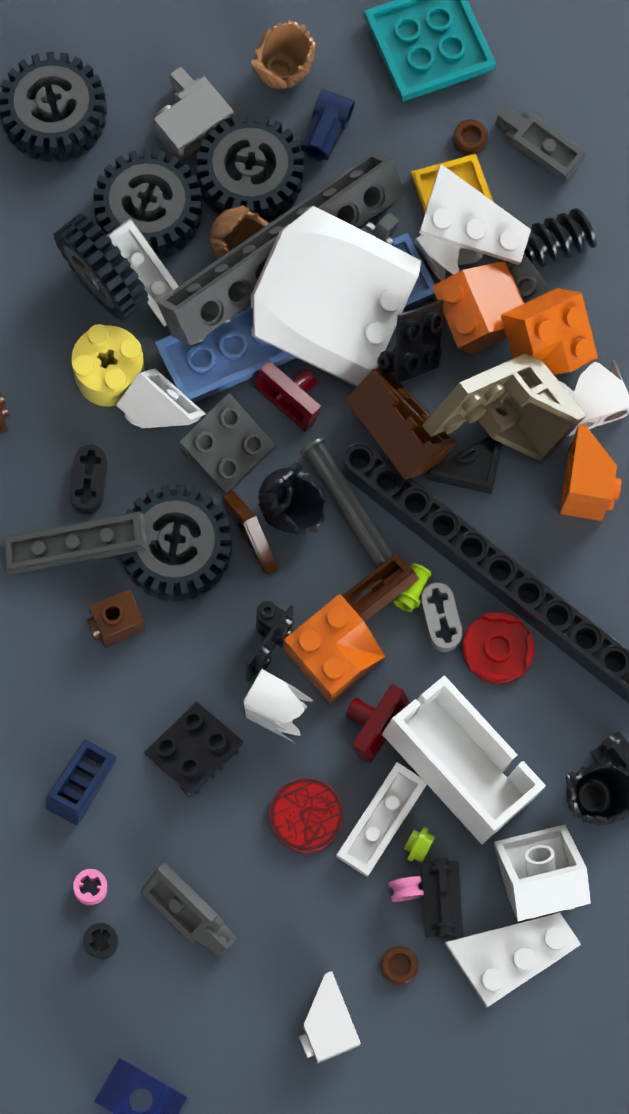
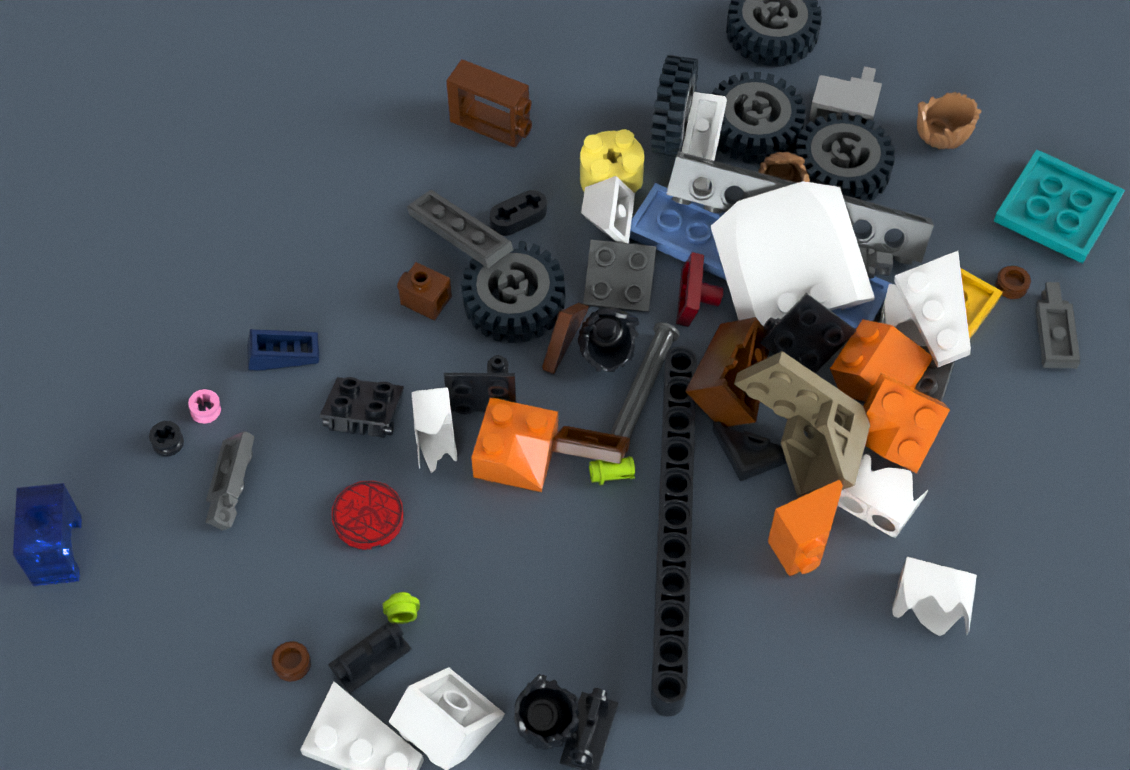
camera: 60 degrees right, 15 degrees down
(328, 1024) = (204, 633): white slope -> none
(329, 117) = (934, 181): dark blue piece -> none
(375, 720) = (480, 513): dark red tile -> none
(381, 819) = (403, 568): white plate -> none
(406, 889) = (357, 622): bright pink bush -> none
(433, 619) = (610, 512): light grey beam -> none
(462, 759) = (492, 589): white piece -> none
(498, 648) = (615, 566): red tile -> none
(559, 235) = (988, 385): black piece -> none

